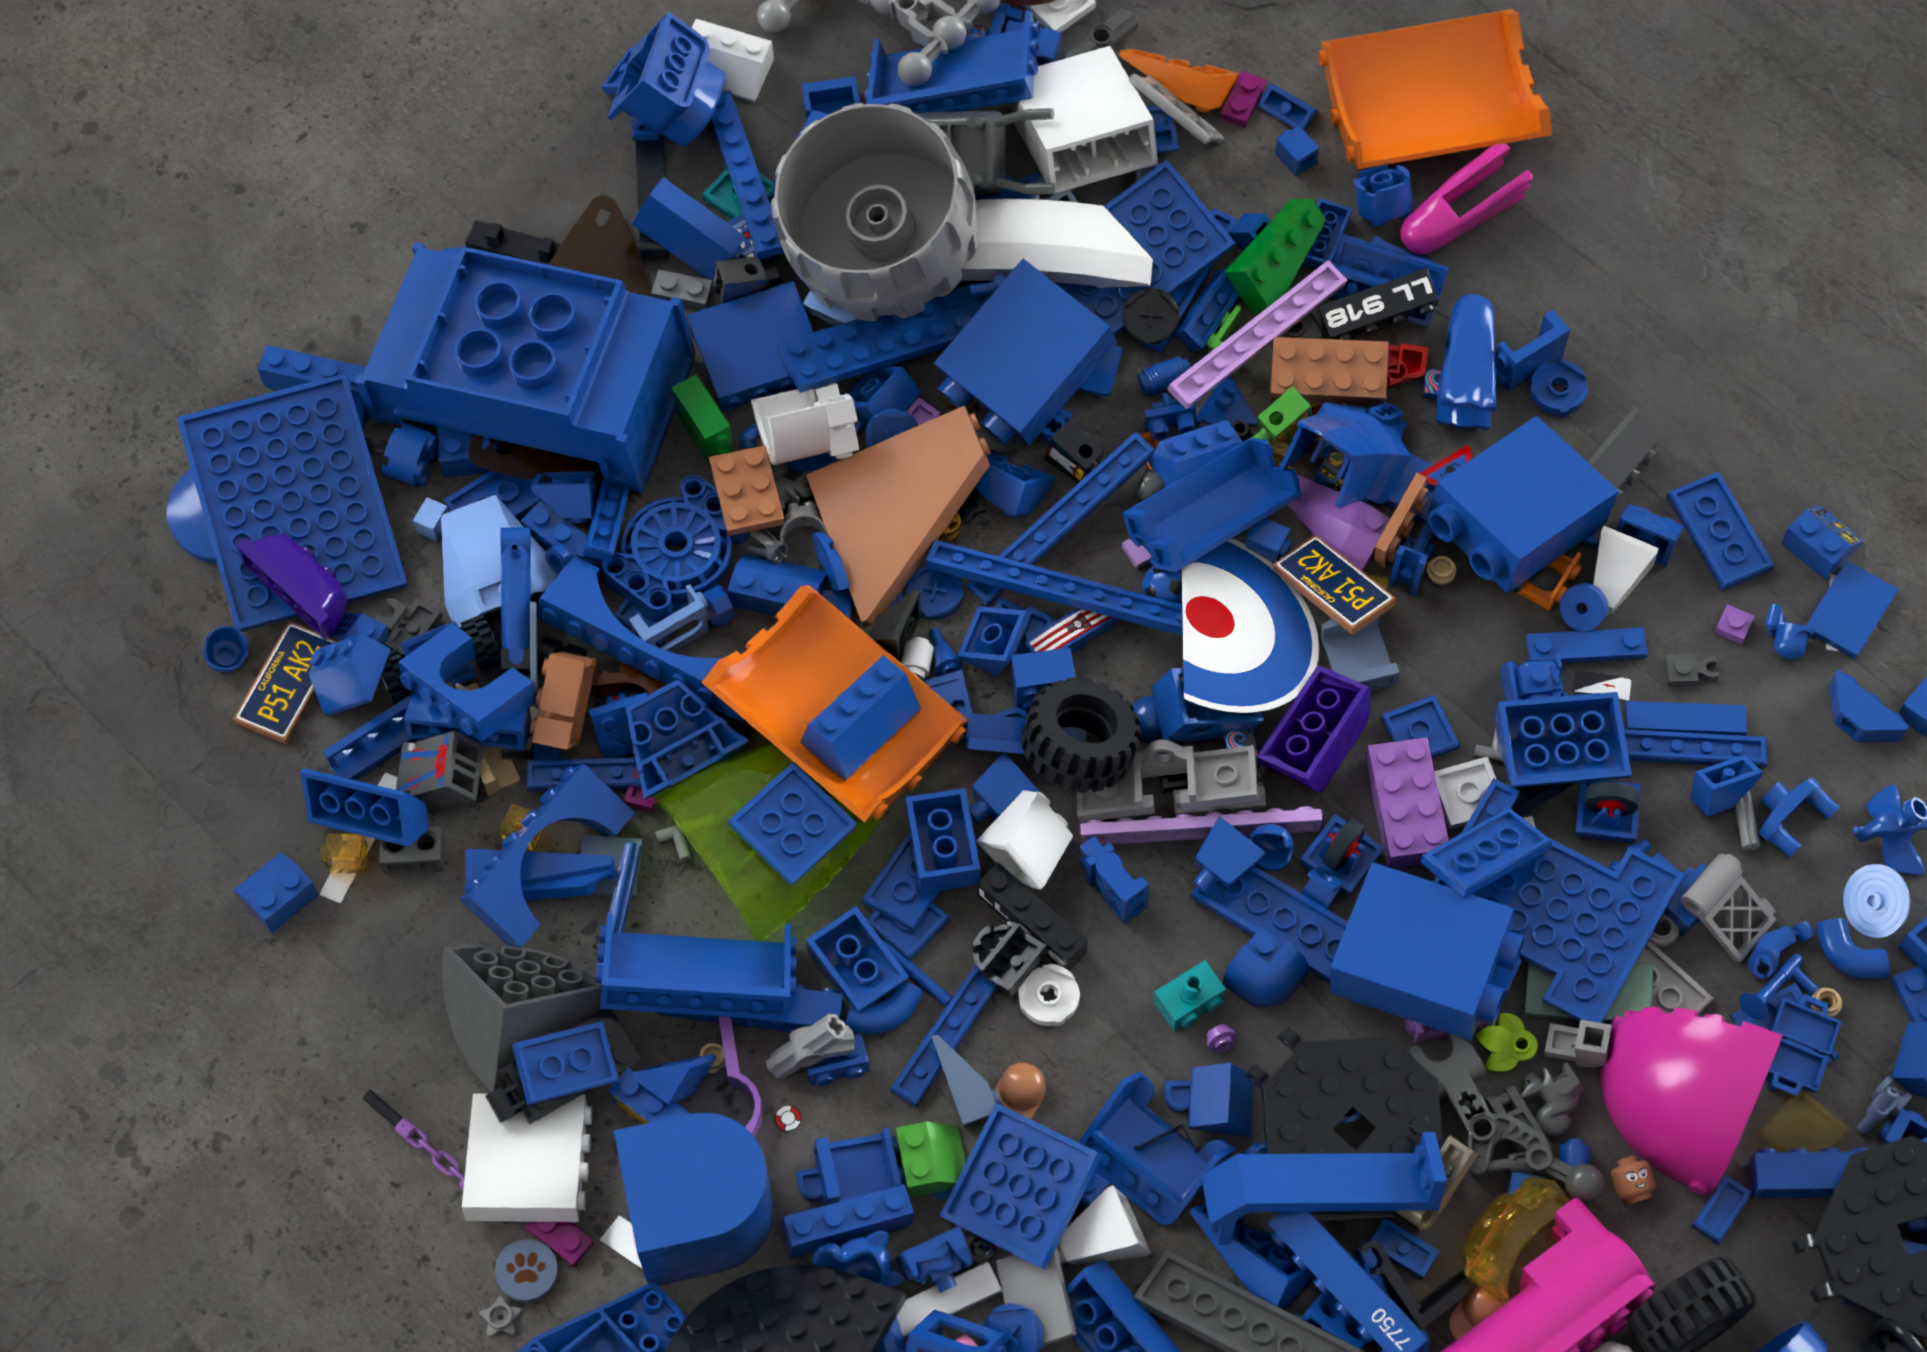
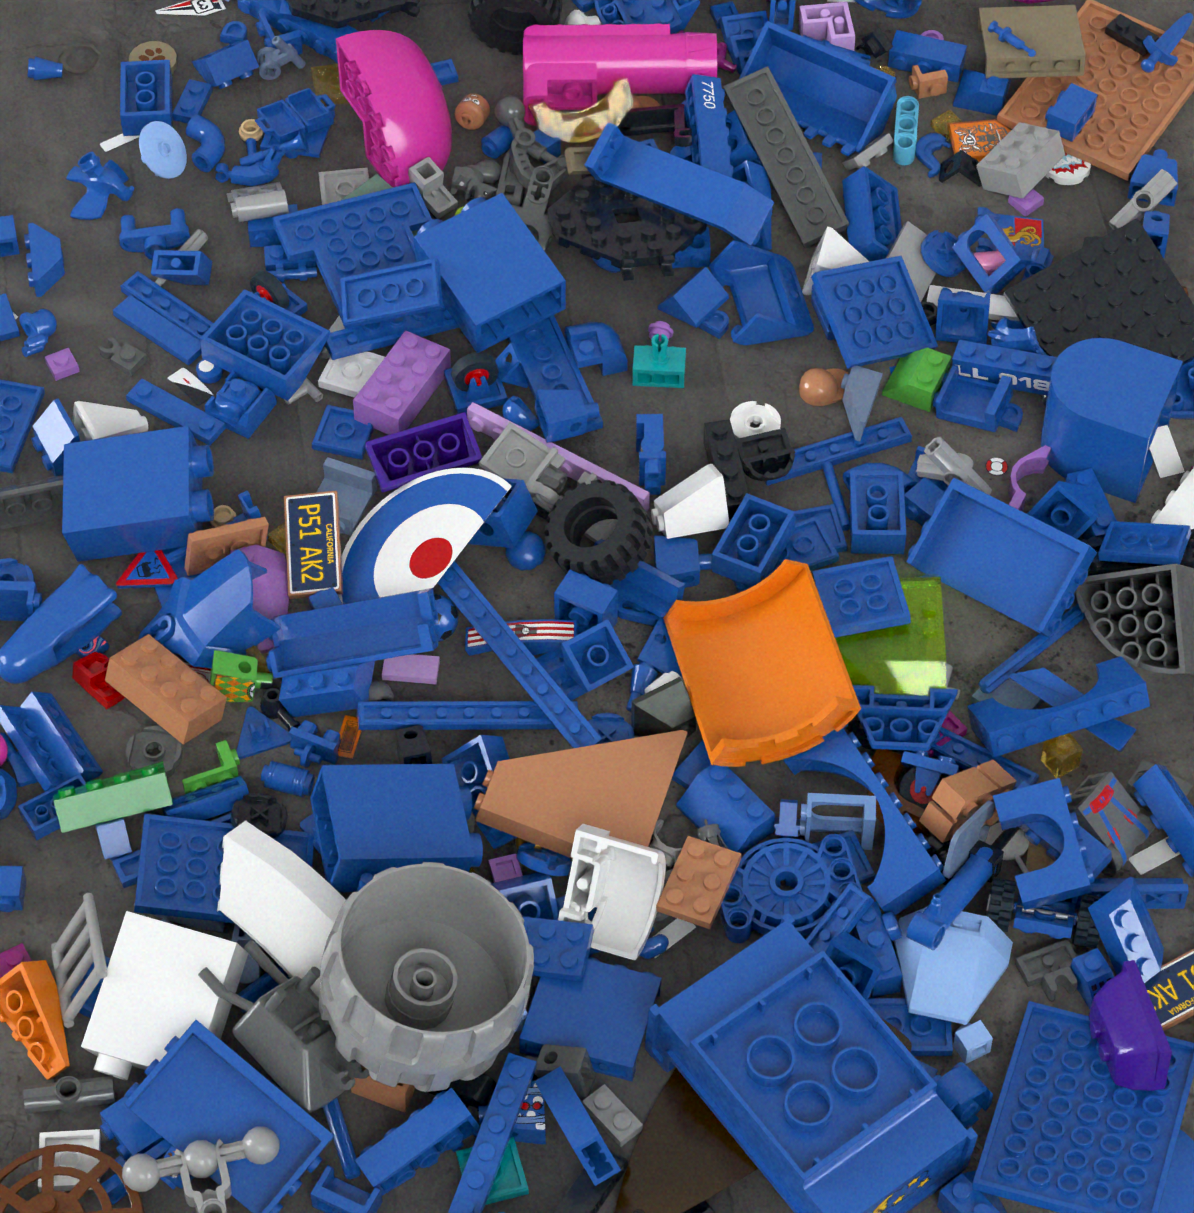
camera: 145 degrees left, 10 degrees down
(702, 418) = (688, 955): green brick -> none
(830, 561) = (673, 793): blue tile -> none
(862, 718) = (752, 644): blue slope -> none
(1166, 1134) = (747, 300): black piece -> none
(1256, 335) = (194, 741): lavender plate -> none
(1379, 306) = (79, 711): black brick -> none
(1596, 607) = (152, 419): blue piece -> none

